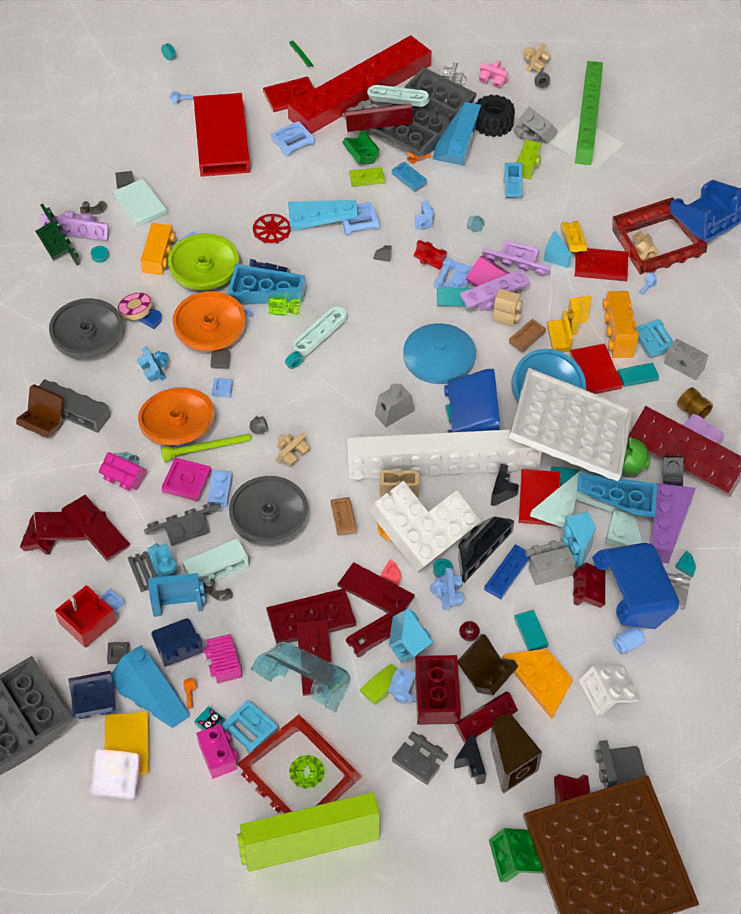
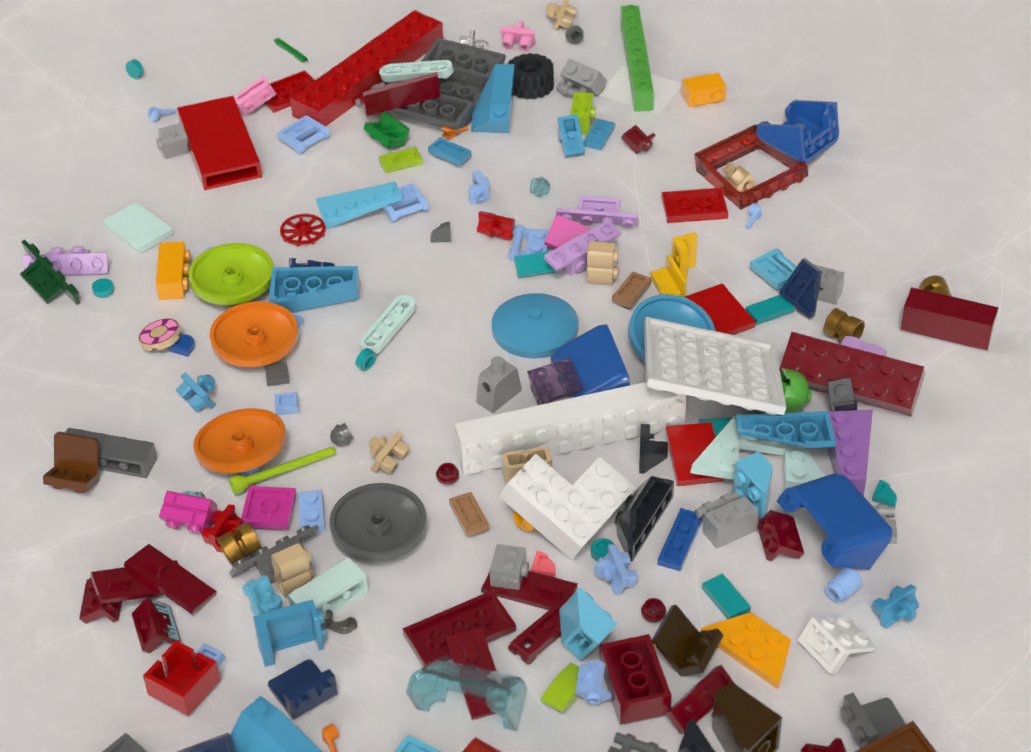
camera: 10 degrees left, 10 degrees down
(76, 564) = (154, 623): none -> dark red panel
(86, 328) = (106, 366): dark grey dish -> none
(99, 208) = (90, 241): clear smoke arm -> none
(116, 651) = (229, 713): dark grey tile -> none
(123, 178) = (113, 205): dark grey tile -> none
(138, 558) = (232, 605): dark grey tile -> none
(149, 491) = (224, 522): none -> red hips
(155, 508) = (239, 543): none -> pearl gold wheel
(183, 127) = (172, 140): none -> light grey head
(191, 539) = (292, 568): none -> tan brick
(223, 658) = (364, 694): dark pink brick -> none
(259, 95) = (254, 95): none -> bright pink bracket
(281, 307) = (334, 306): clear neon green plate -> none
(335, 472) = (447, 473): none -> dark red plate
(362, 570) = (508, 567): none -> light grey head
(440, 412) = (554, 381): none -> clear purple bracket
(538, 181) = (599, 134): none -> dark azure plate
(557, 252) = (642, 200): medium azure slope -> none
(569, 193) = (637, 139): none -> dark red bracket
(573, 236) = (655, 181): yellow plate -> none
(621, 324) = (735, 260): light orange wedge -> none
(638, 154) = (703, 89): none -> light orange brick
(669, 362) = (803, 287): none -> dark blue wing
(669, 668) = (899, 605): none -> dark azure hips

